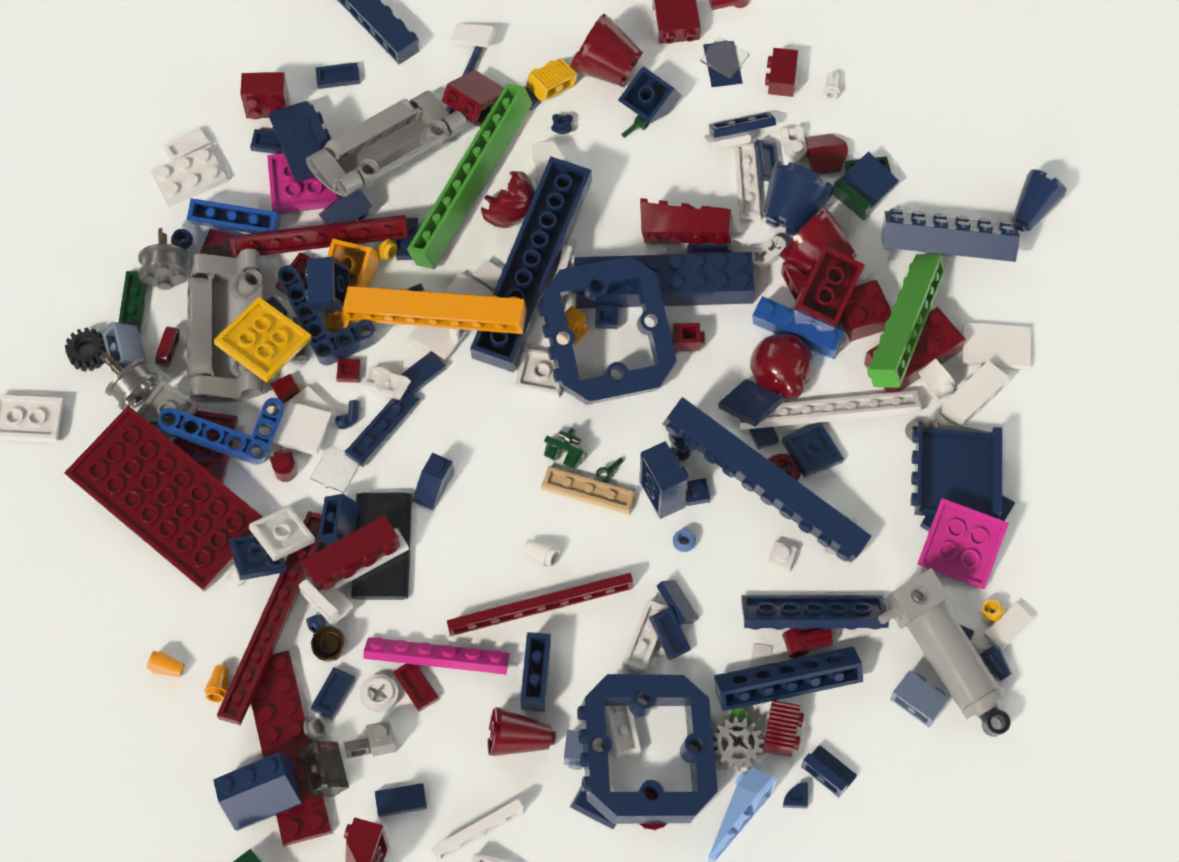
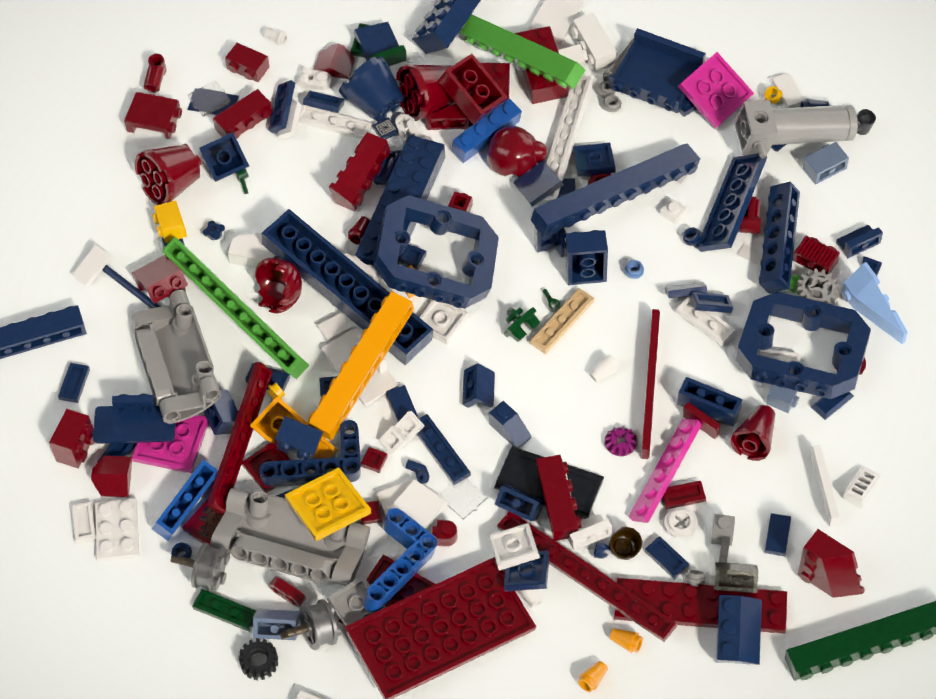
camera: 65 degrees left, 5 degrees down
(242, 147) = (112, 476): none -> dark red slope
(464, 607) = (620, 449): none -> magenta gear
(471, 437) = (478, 386): none -> dark blue panel
(512, 673) = (708, 426): none -> dark red tile
(617, 250) = (357, 231): none -> dark red cone
(713, 94) = (243, 114): none -> dark red brick
(753, 586) = (692, 236): none -> dark blue plate
(759, 231) = (385, 129): none -> tile
(901, 438) = (612, 99): none -> light grey plate

